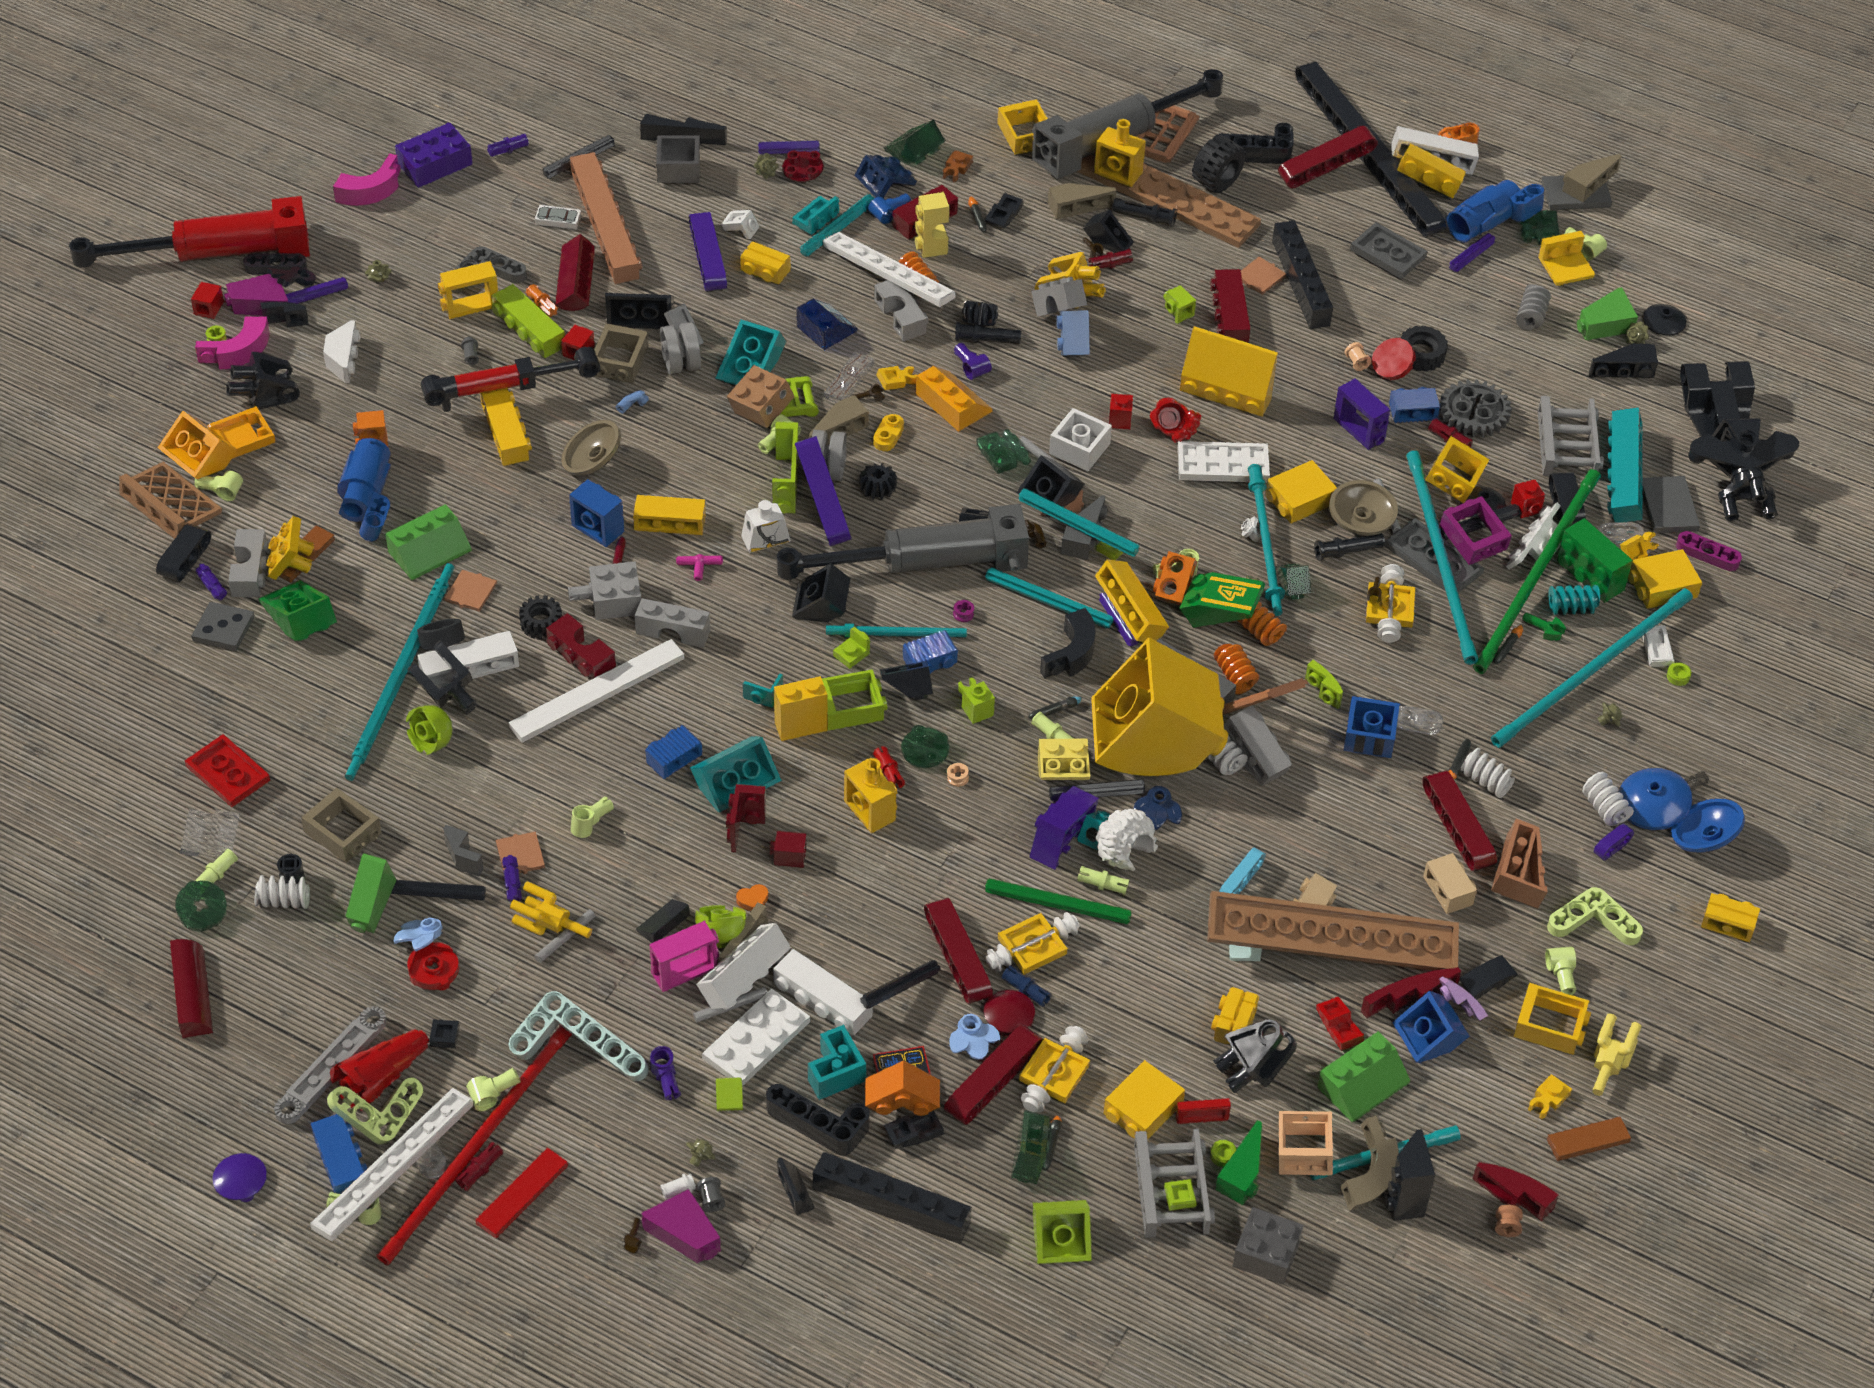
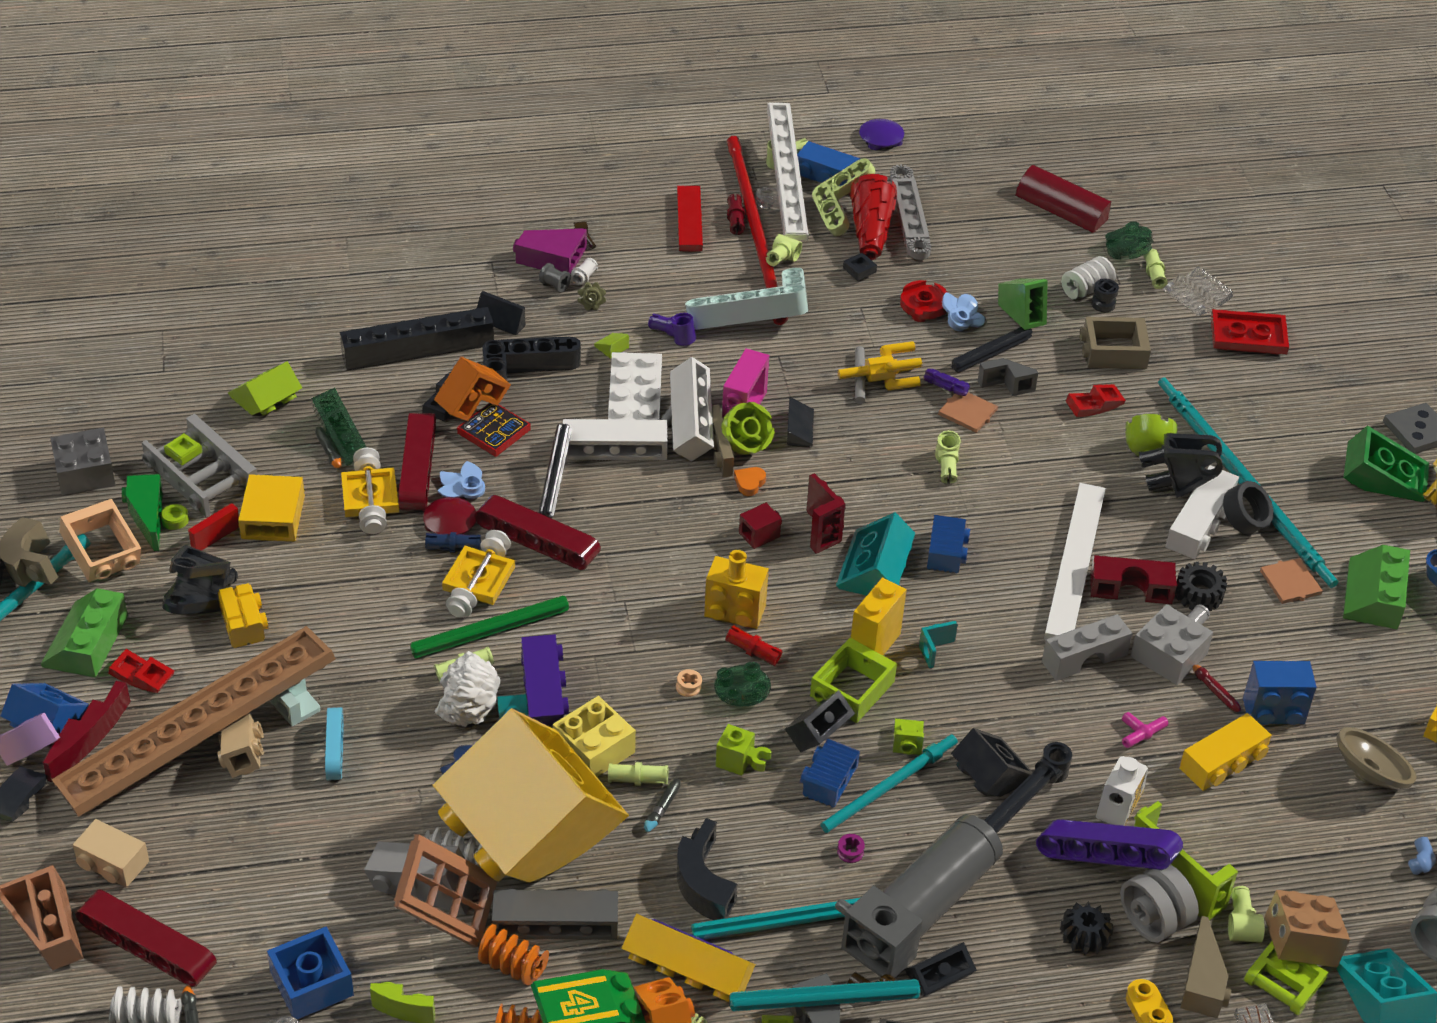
camera: 140 degrees right, 5 degrees down
(415, 795) = (1099, 400): none -> red slope
(840, 1065) = (546, 393): teal brick -> none

